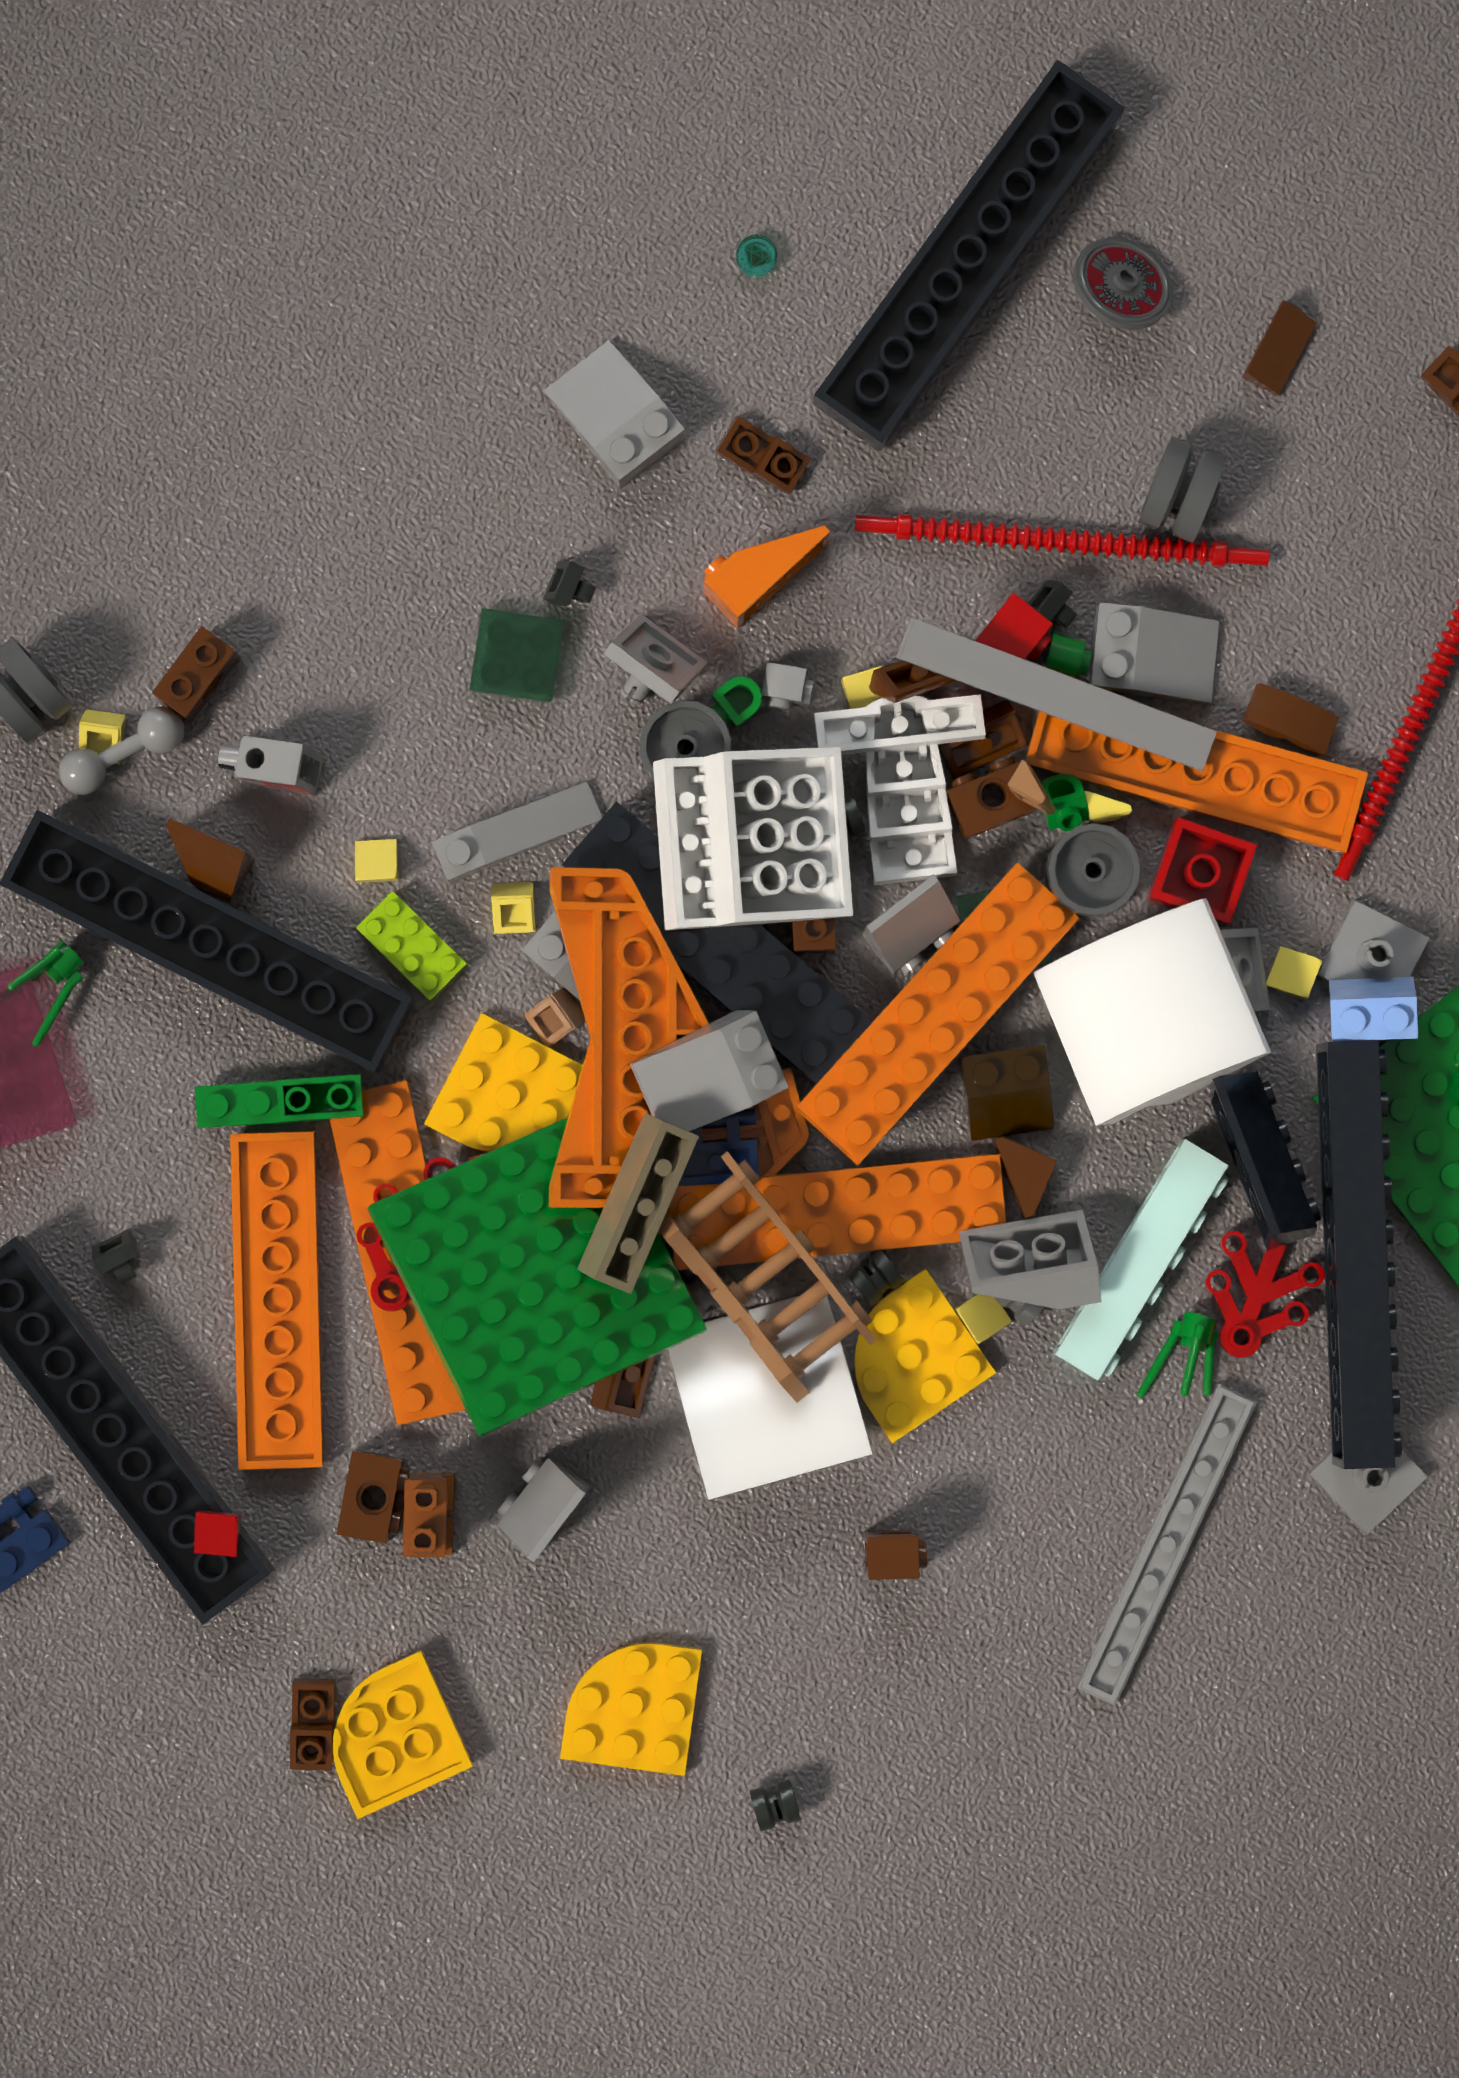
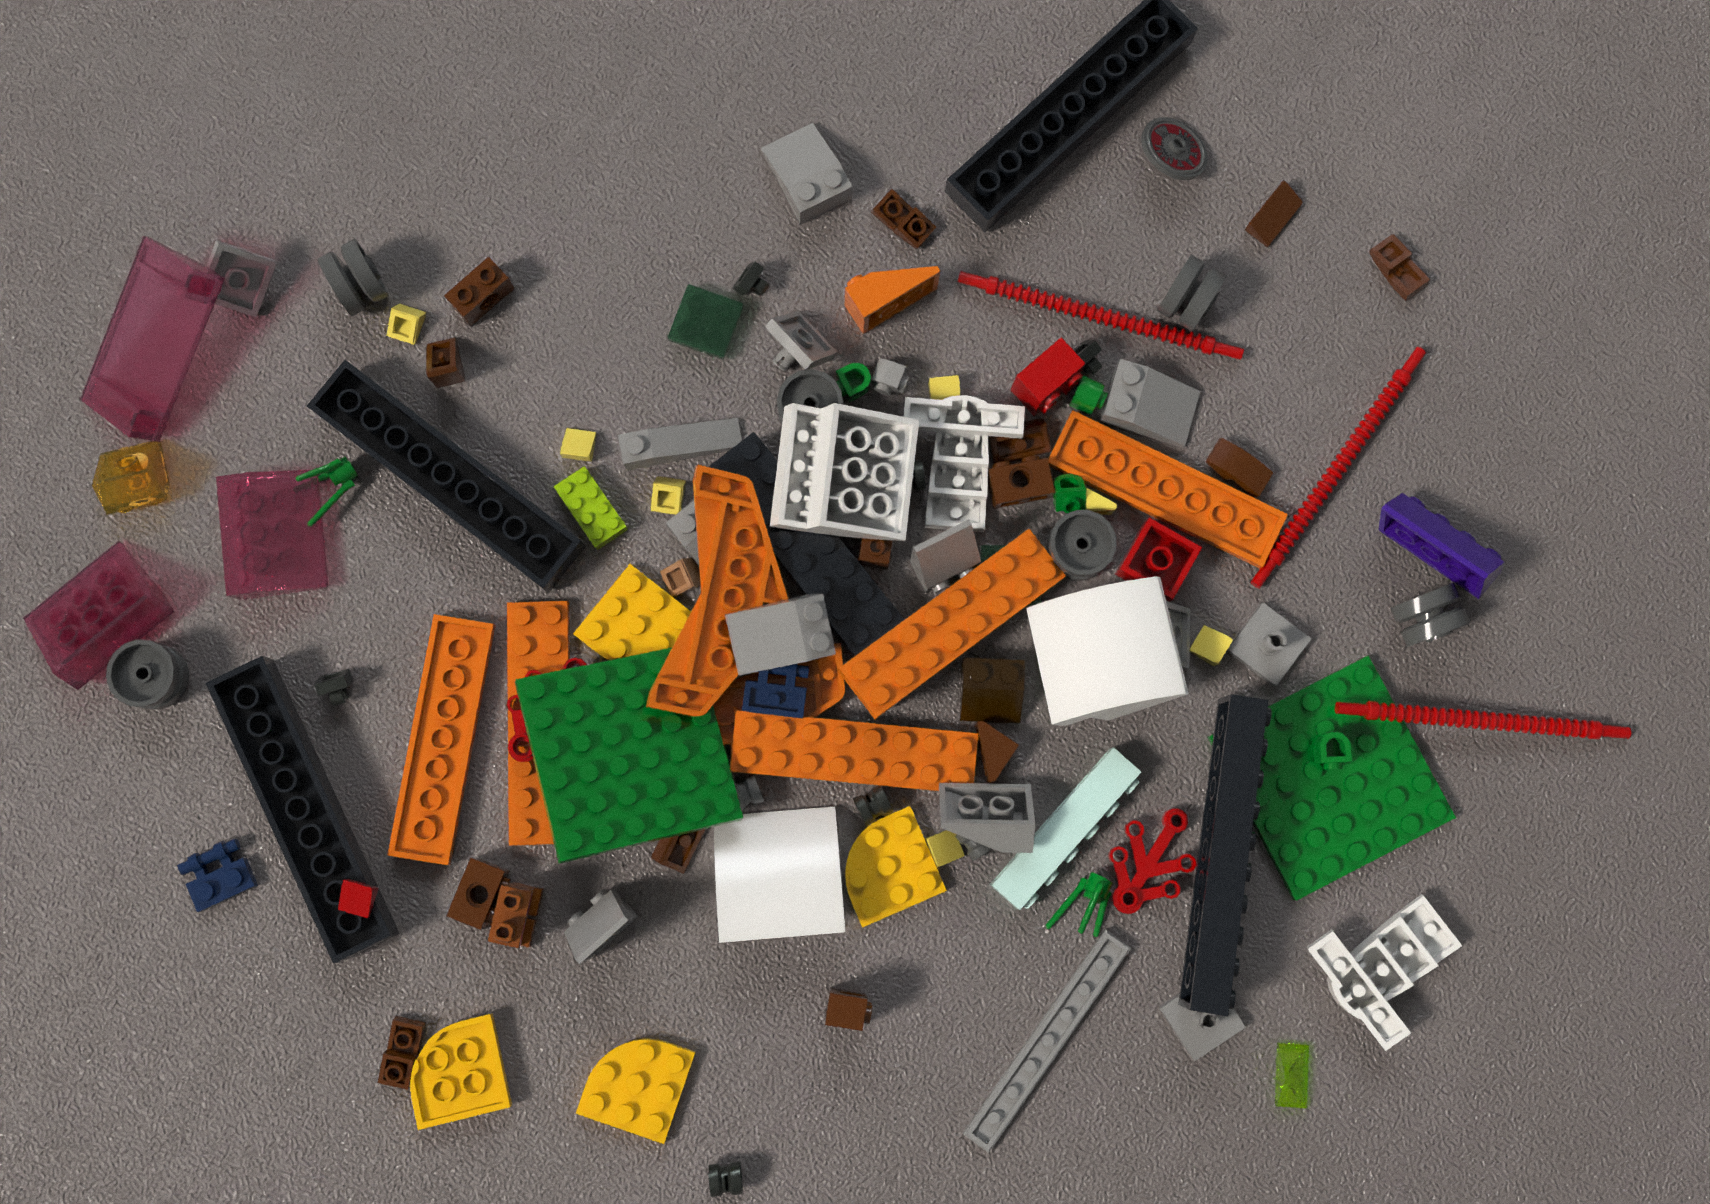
camera: 10 degrees right, 5 degrees down
(158, 730) = (444, 324): light grey piece -> none
(167, 783) = (444, 363): none -> reddish brown slope
(210, 862) = (459, 419): reddish brown slope -> none
(273, 764) = (520, 362): light grey torso -> none
(279, 1101) = (472, 597): green slope -> none
(637, 1203) = (709, 714): dark tan brick -> none
(734, 1296) = (766, 798): medium nougat fence -> none
(756, 256) = (925, 86): clear green tile -> none
(904, 680) = (981, 384): reddish brown slope -> none
(1029, 789) = (1047, 478): medium nougat slope -> none
(1056, 694) = (1078, 413): light grey tile -> none
(1262, 1158) = (1166, 772): black slope -> none
(1373, 1009) = (1266, 679): light blue brick -> none

